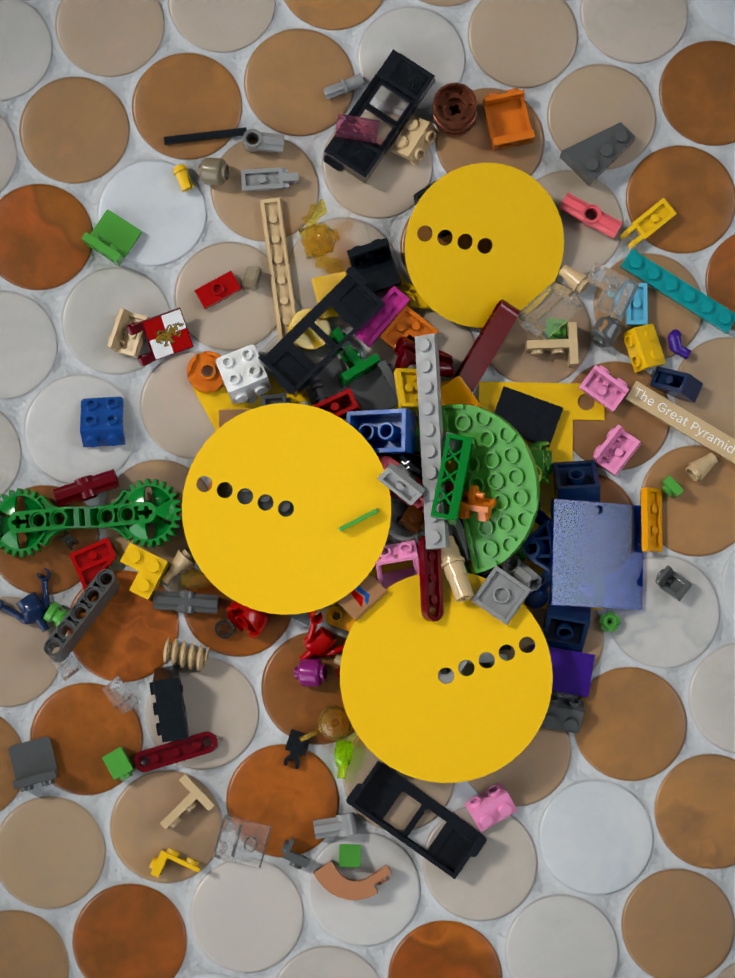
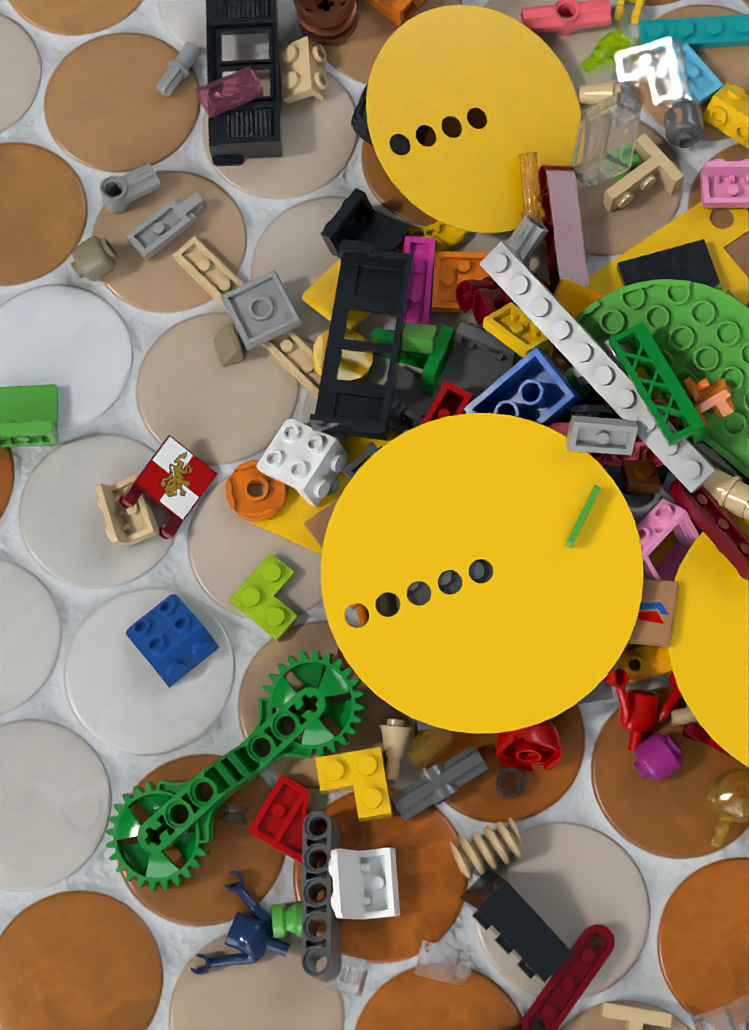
camera: 30 degrees left, 10 degrees down
(86, 488) = (209, 733): dark red piece -> none
(108, 625) = (364, 883): none -> white bracket
(166, 431) = (258, 598): none -> lime plate
(183, 177) = (59, 289): yellow pin -> none
(202, 136) = (54, 230): black bar -> none
(217, 290) = (198, 389): red plate -> none
(283, 270) = (261, 310): none -> light grey plate
(296, 747) = (710, 862): black plate -> none
(320, 239) = (277, 245): clear yellow helmet -> none
(355, 351) = (418, 338): none -> bright green slope
(455, 338) = (526, 238): none -> light grey piece
(479, 319) = (531, 187): none -> clear yellow pin
(600, 253) = (605, 48): none -> clear neon green piece

